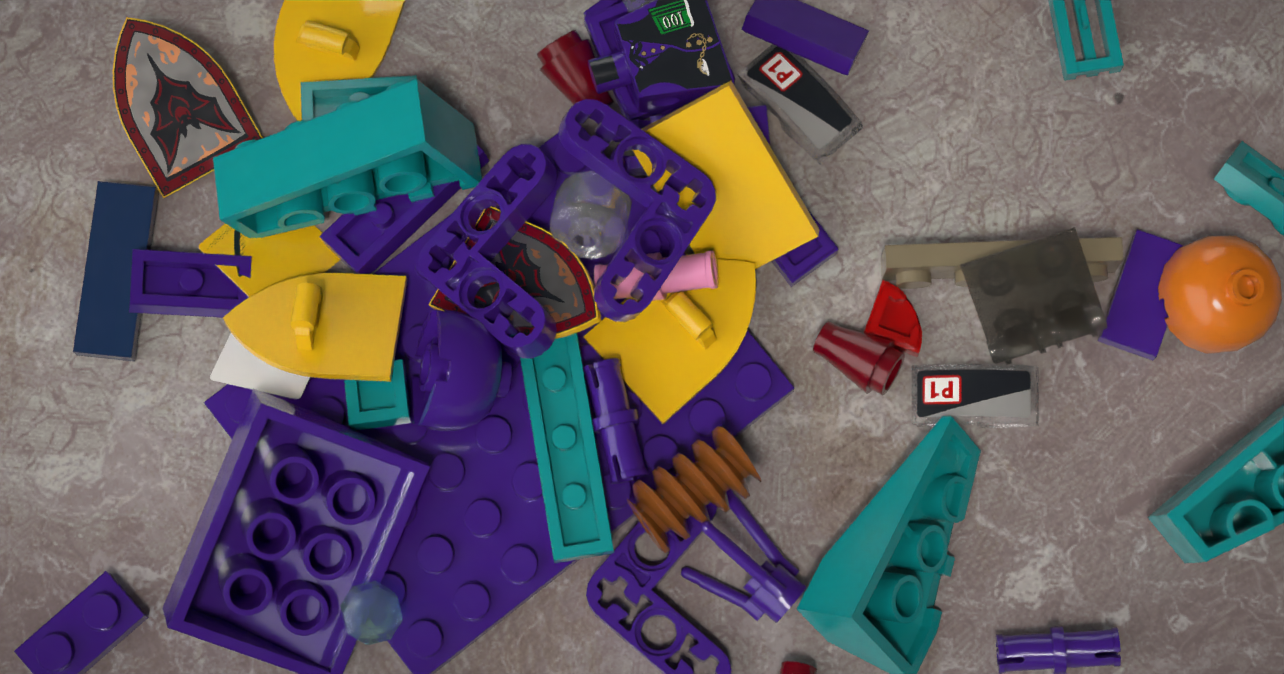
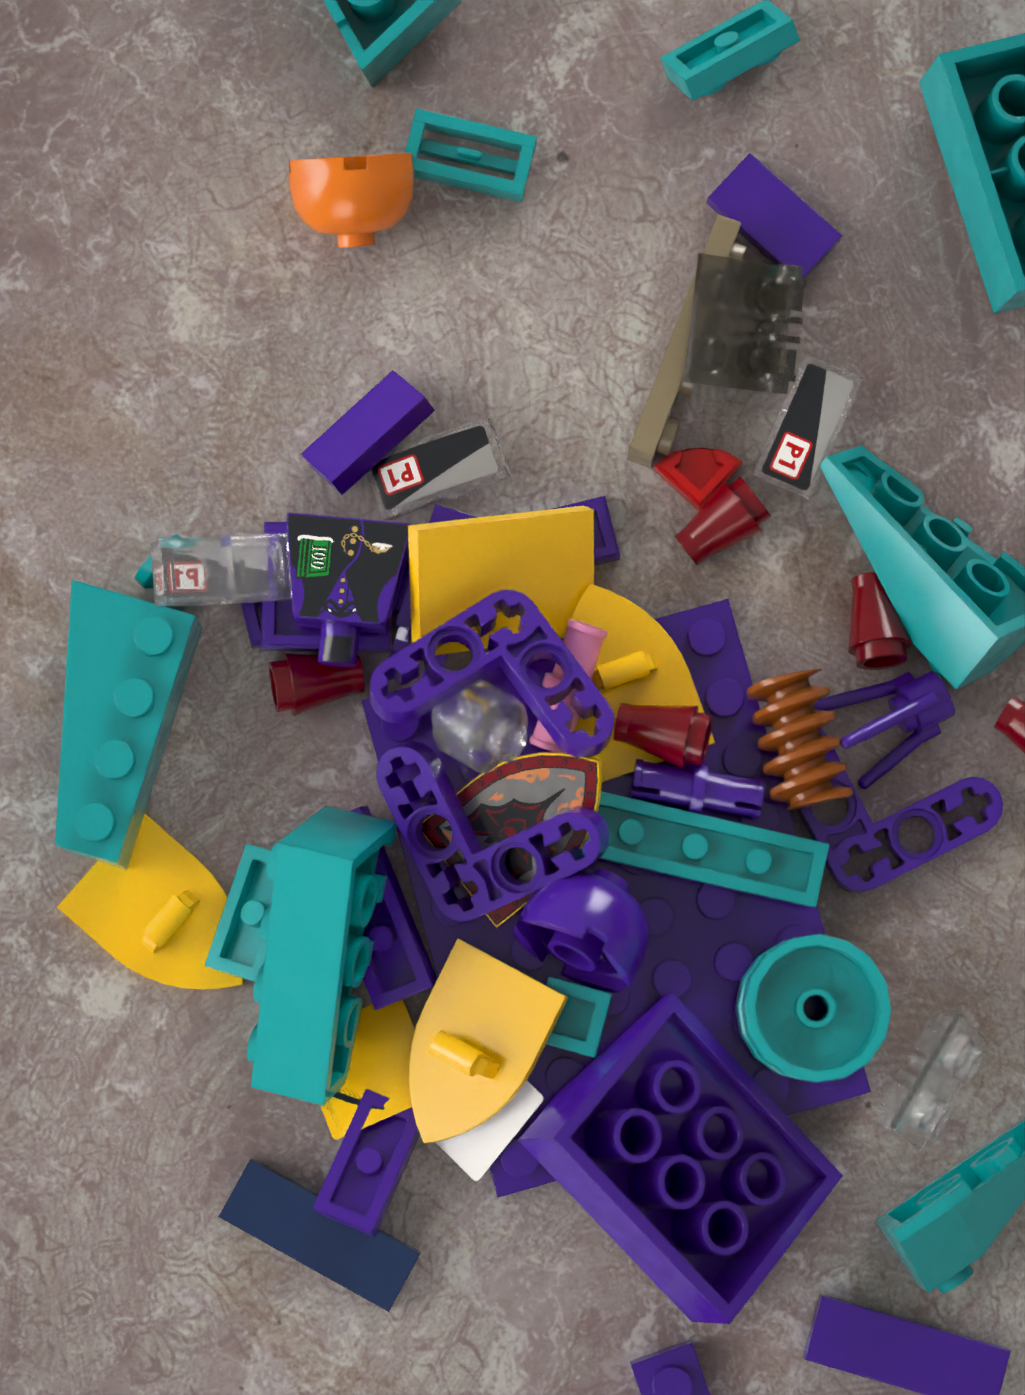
camera: 70 degrees left, 5 degrees up
(175, 104) = (174, 1103): shield -> none
(371, 613) = (791, 1111): clear light blue tile -> none
(470, 625) = (853, 1008): none -> teal wheel
(652, 376) = (666, 731): none -> dark red cone
(821, 523) = (875, 628): none -> dark red cone
(1220, 294) = (808, 145): orange cylinder -> none

